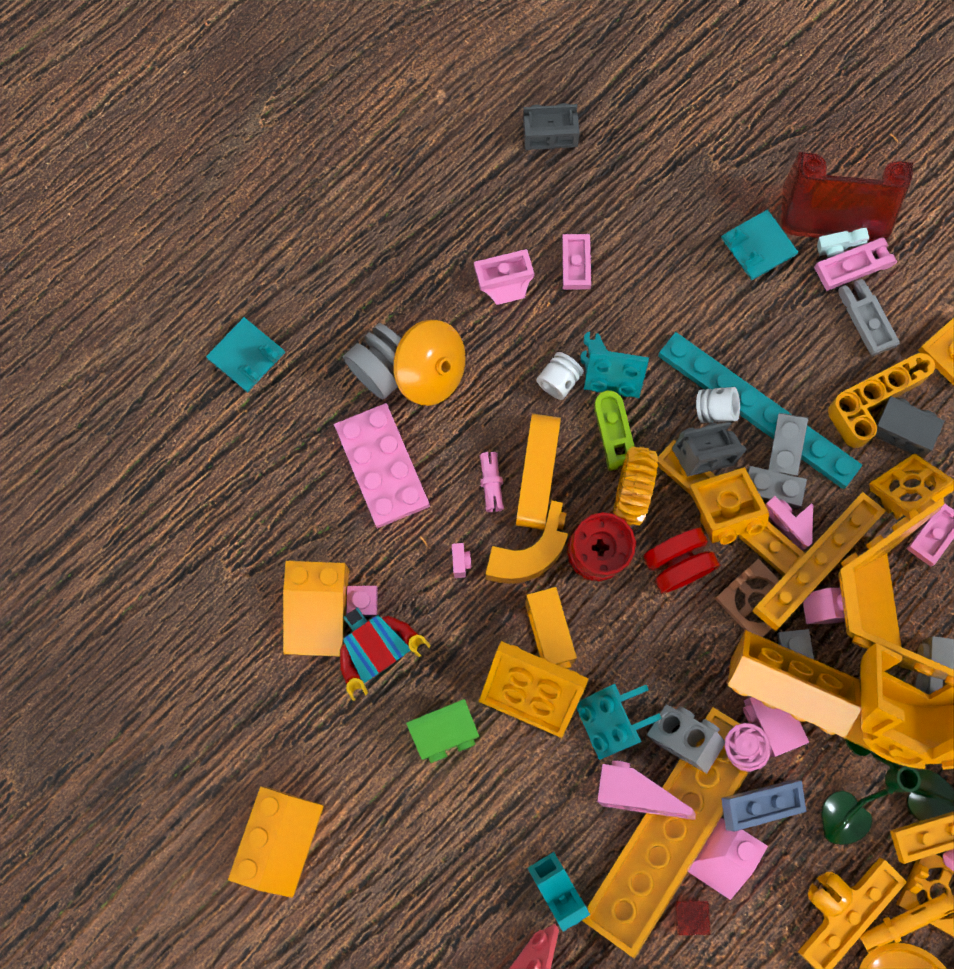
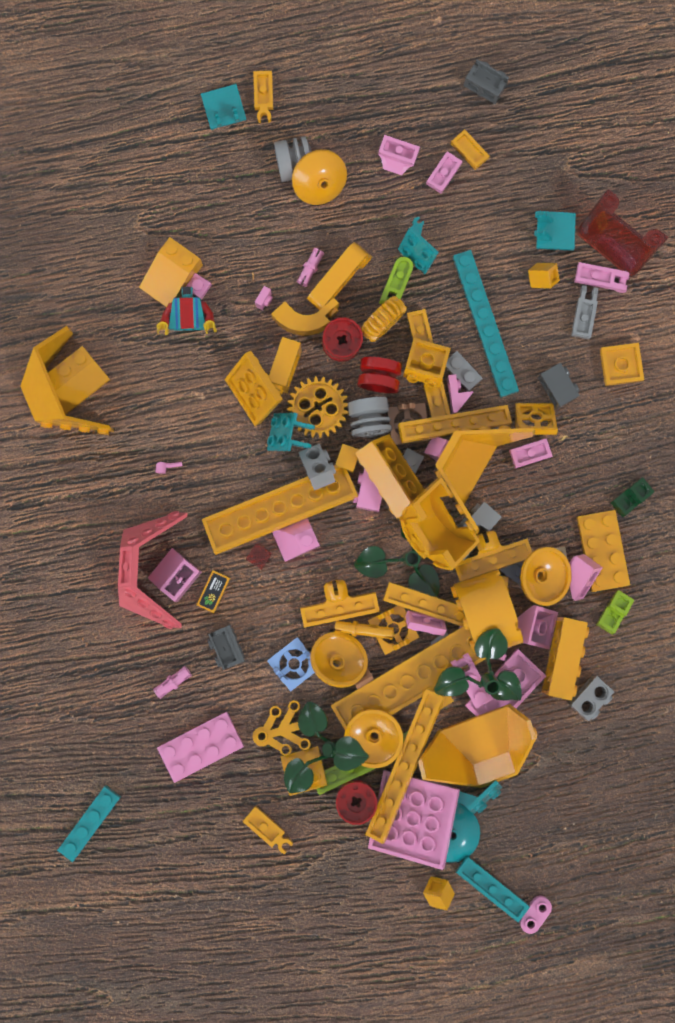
camera: 30 degrees right, 10 degrees up
(242, 891) = (41, 393): none -> light orange piece
(287, 308) = (263, 94): none -> light orange plate
(382, 465) = (257, 219): bright pink plate -> none
(443, 731) = (194, 380): bright green slope -> none
(474, 882) = (161, 466): none -> bright pink hand
(558, 891) = (199, 497): teal brick -> none
(559, 375) = (387, 232): white piece -> none
(586, 216) = (470, 149): none -> light orange tile
(603, 646) = (307, 393): none -> light orange gear
(630, 790) = (268, 471): bright pink slope -> none
(707, 448) = (438, 325): dark grey hinge -> none
(708, 625) = (369, 417): none -> light grey wheel
(716, 697) = (347, 458): none -> light orange panel
(718, 405) = (462, 305): white piece -> none
(747, 747) = (344, 491): bright pink wheel -> none
(763, 805) = (333, 525): sand blue plate -> none
(786, 305) = (543, 275): none -> light orange panel
(788, 444) = (485, 352): light grey plate -> none
(838, 242) = (600, 258): light aqua plate -> none
(881, 391) = (560, 352): light orange beam -> none

